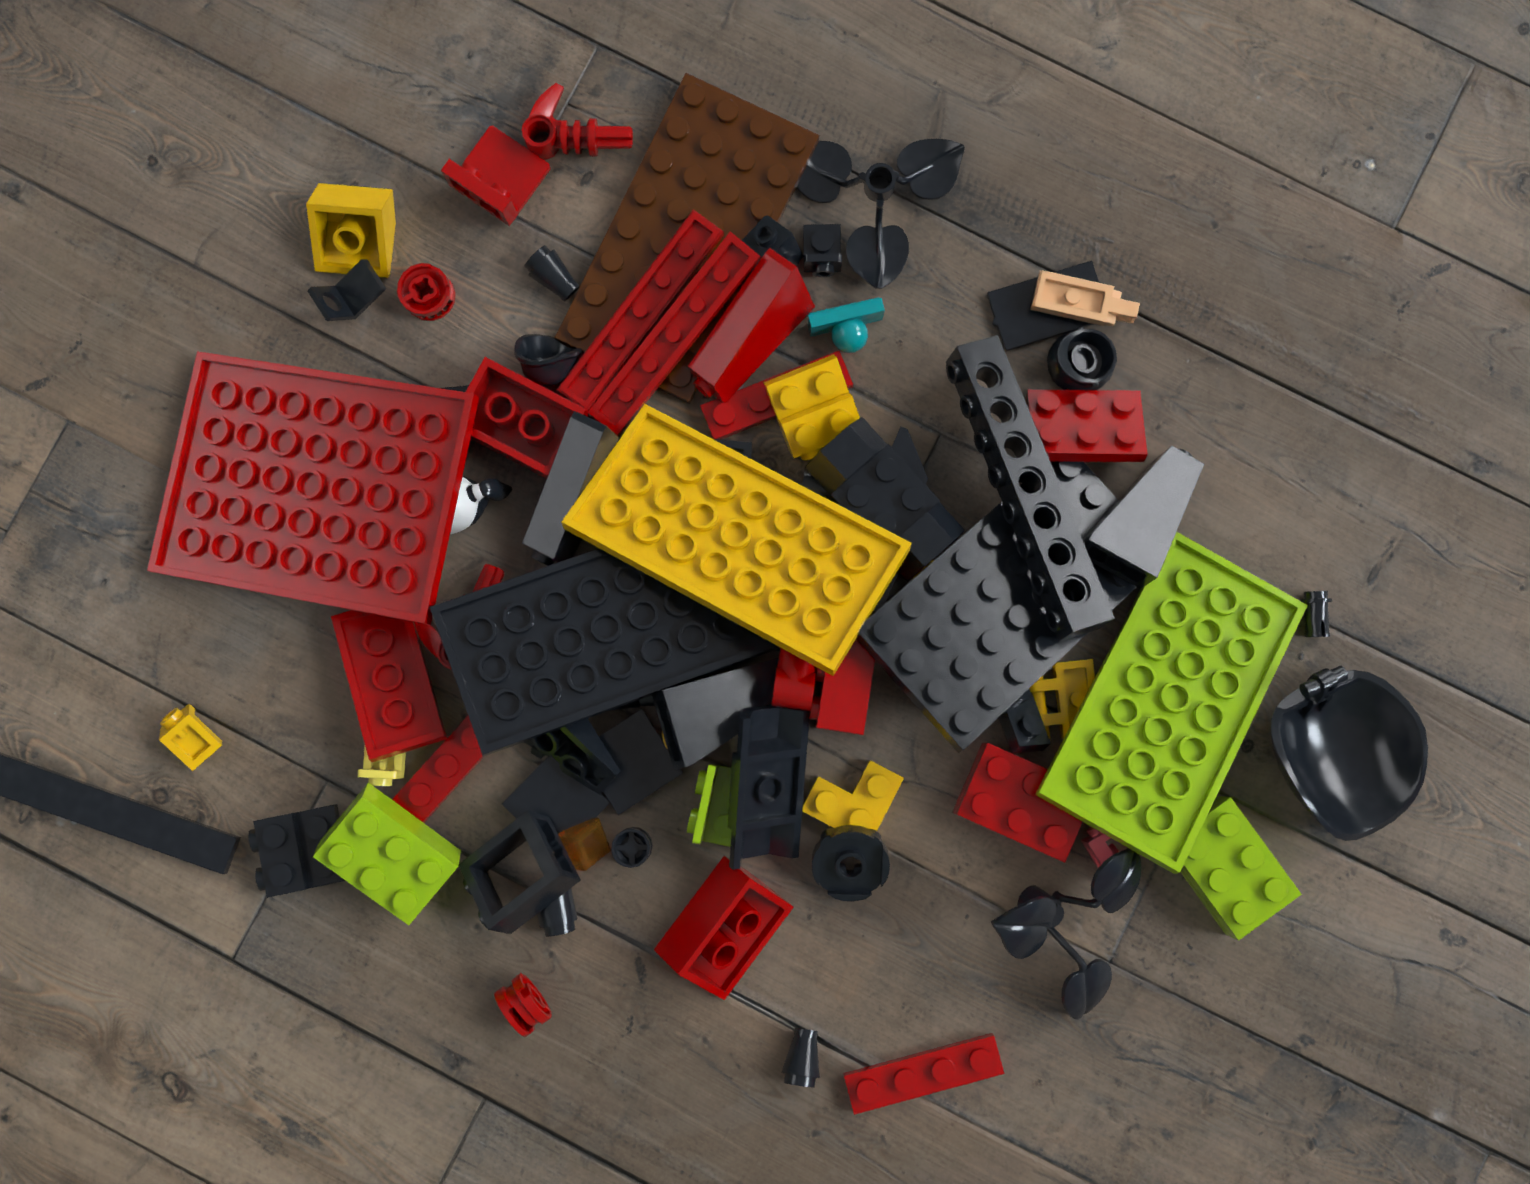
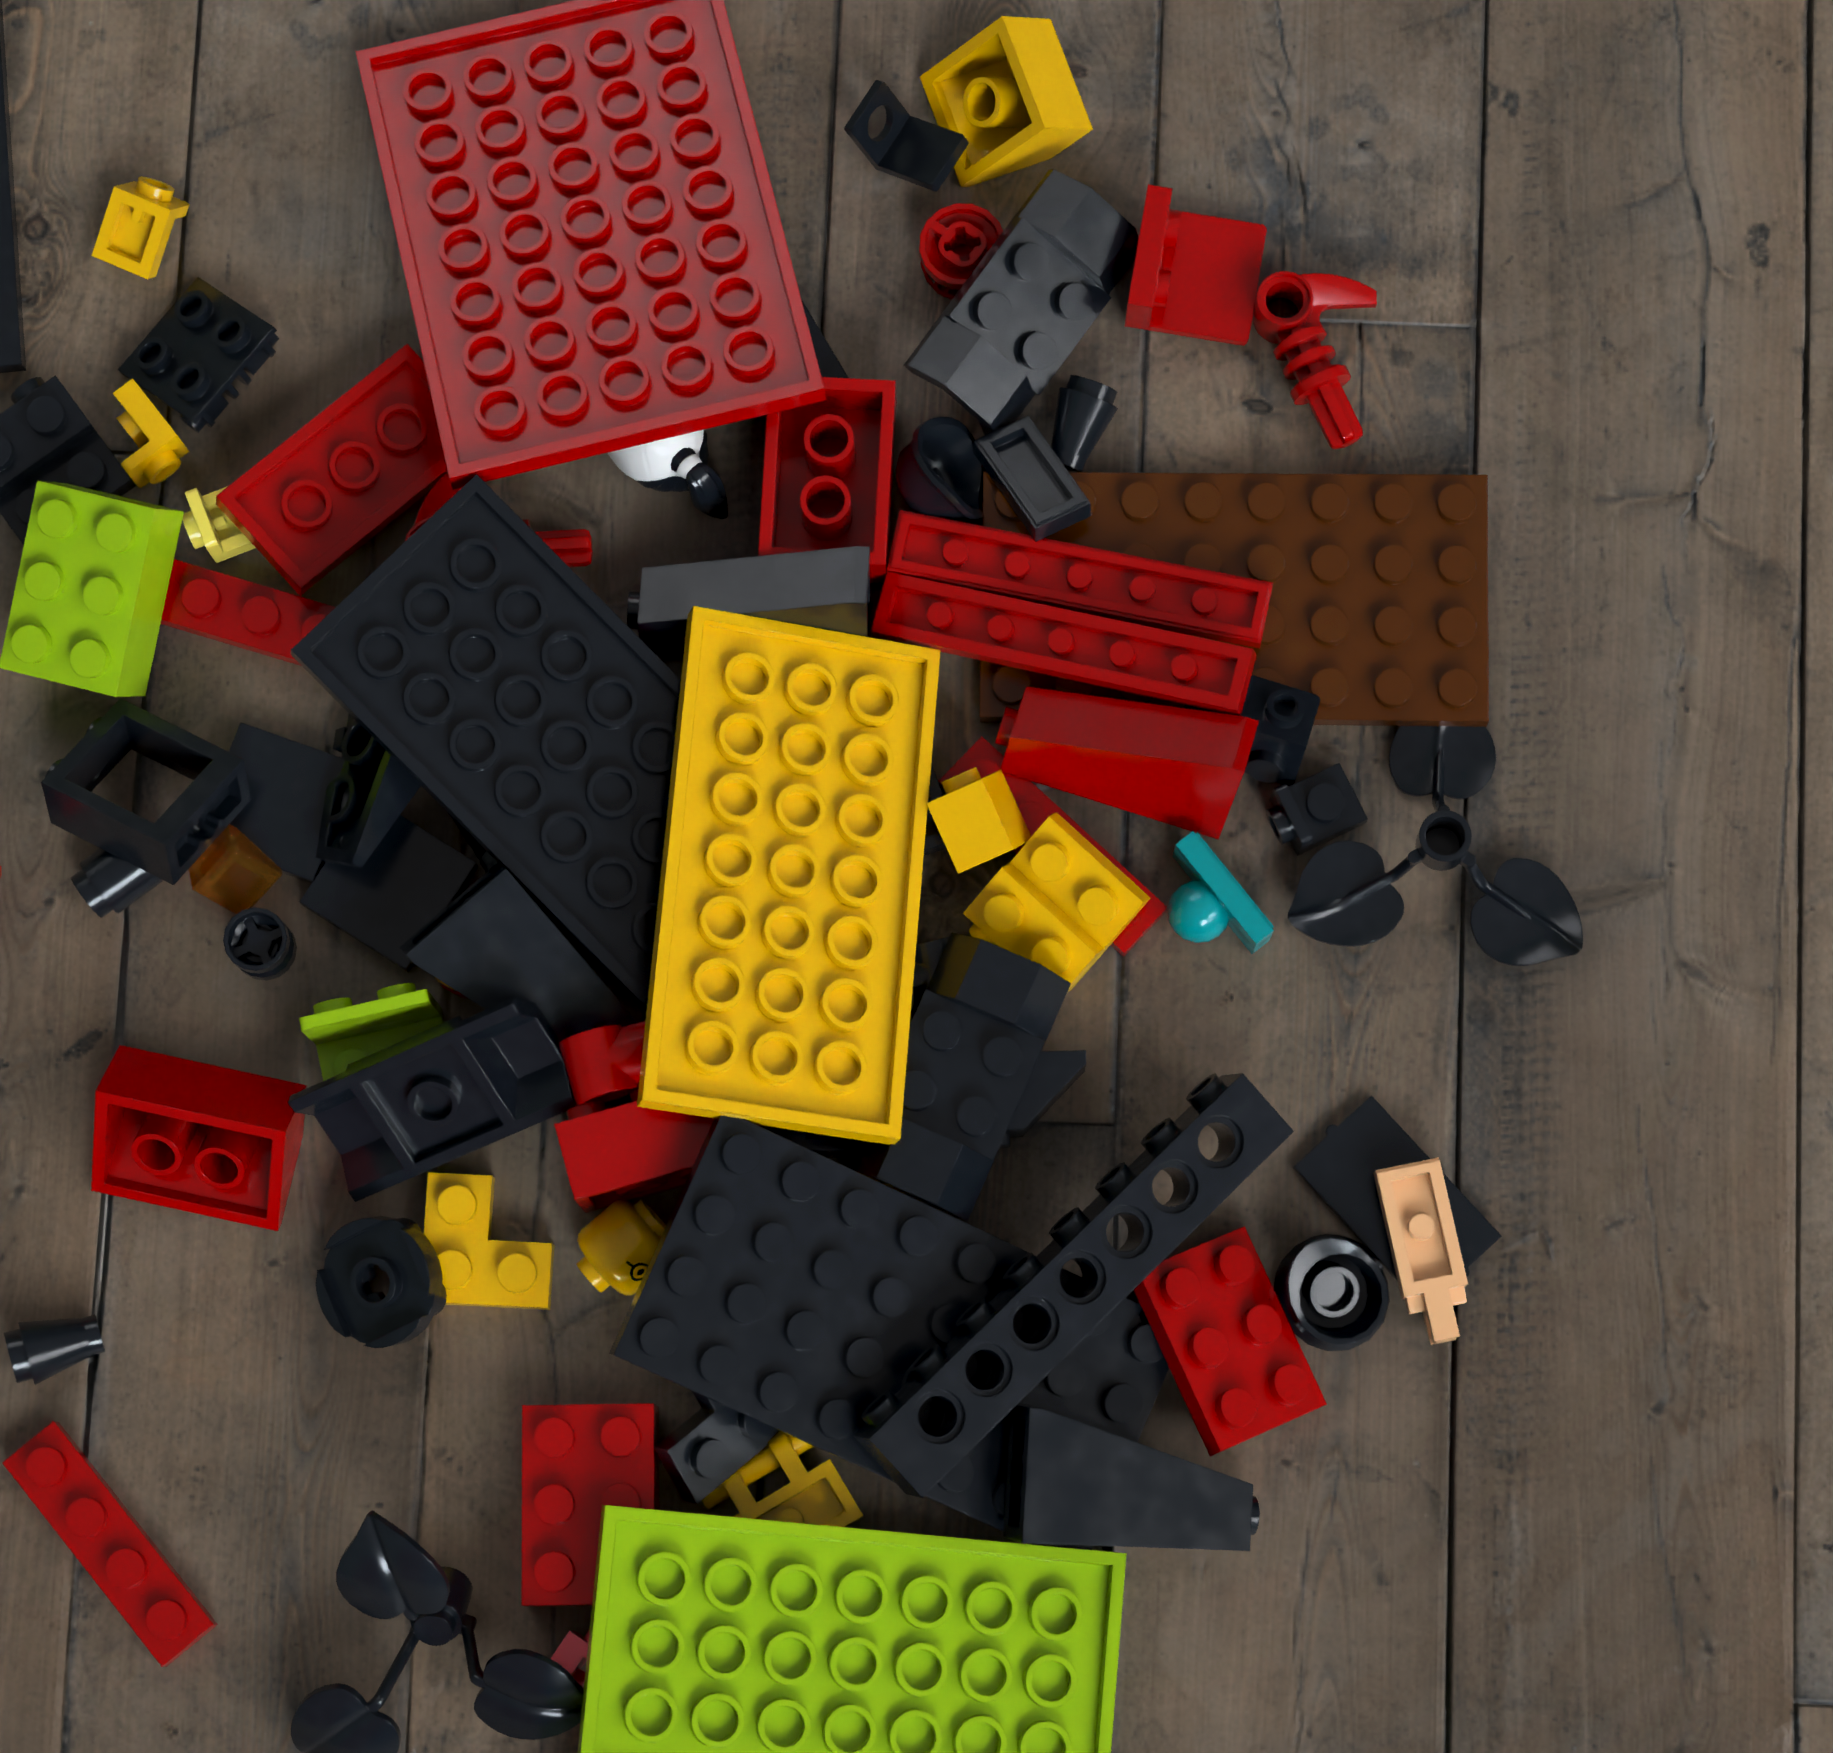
camera: 65 degrees right, 5 degrees down
(279, 735) = (199, 354): none -> black hinge
(306, 781) = (144, 423): none -> yellow bracket
(471, 268) = (1027, 301): none -> black piece
(573, 311) = (1032, 478): none -> black tile
(748, 425) = (978, 818): none -> yellow brick
(891, 721) = (619, 1245): none -> yellow head

